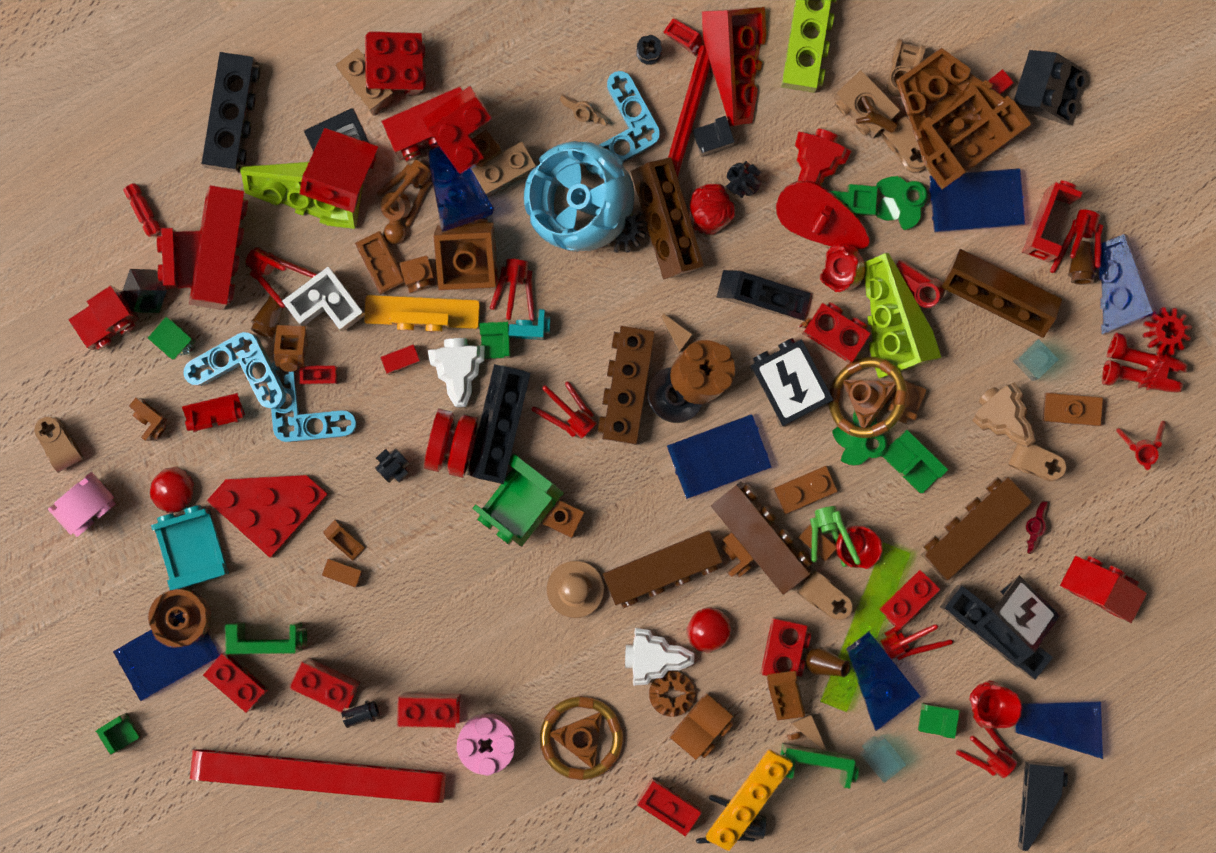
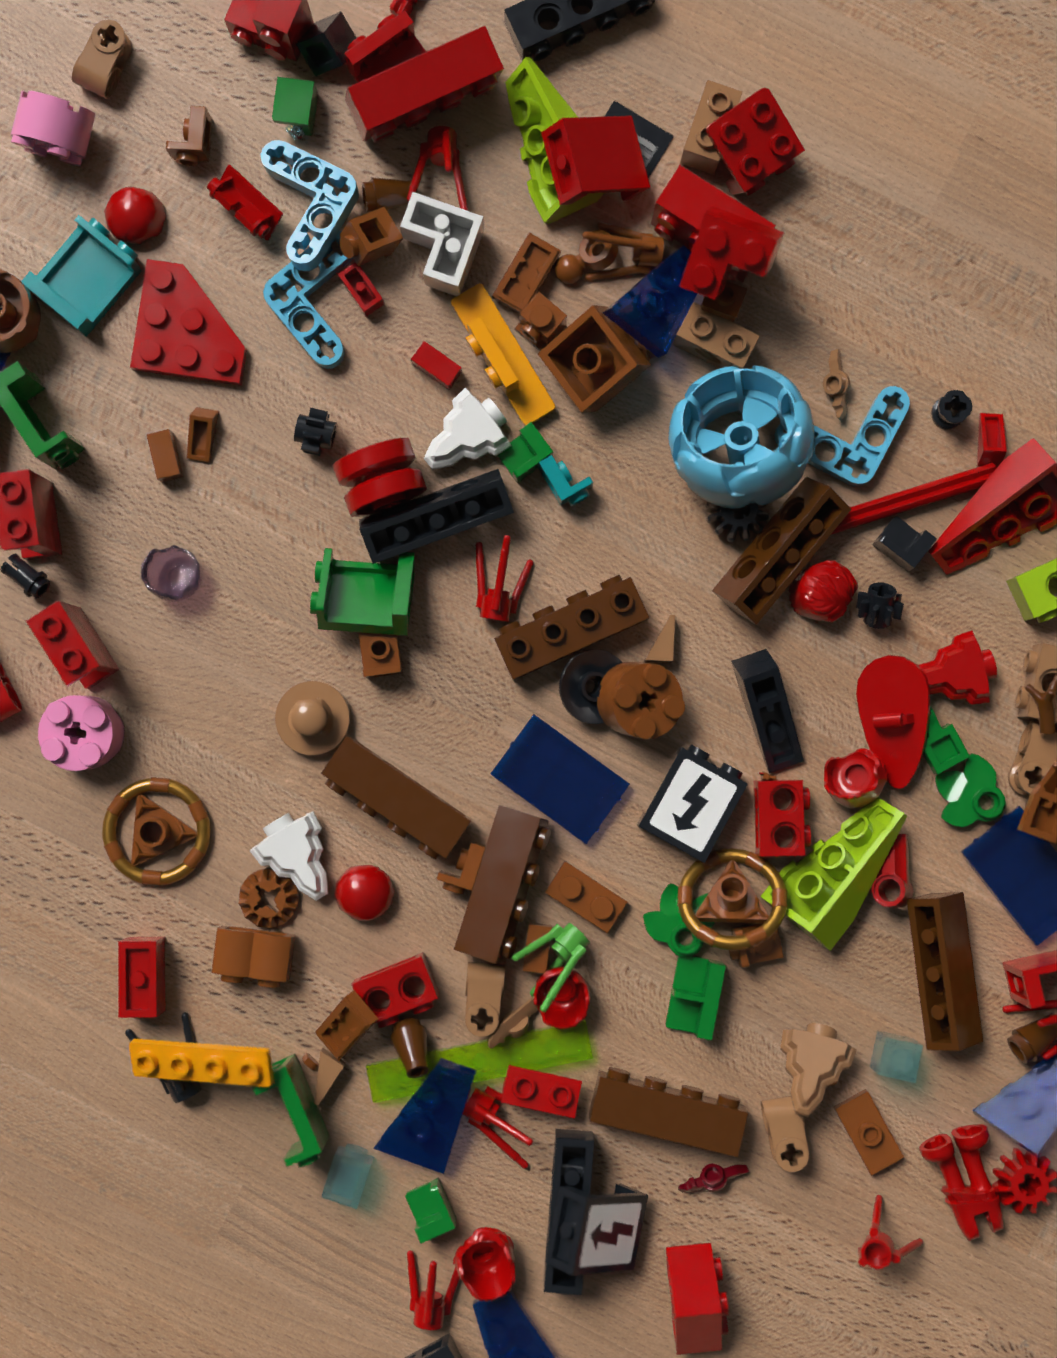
camera: 60 degrees right, 0 degrees up
(422, 617) = (171, 573): none -> hair
(515, 272) = (610, 426): red plant -> none
(855, 589) = (513, 1024): none -> medium nougat piece

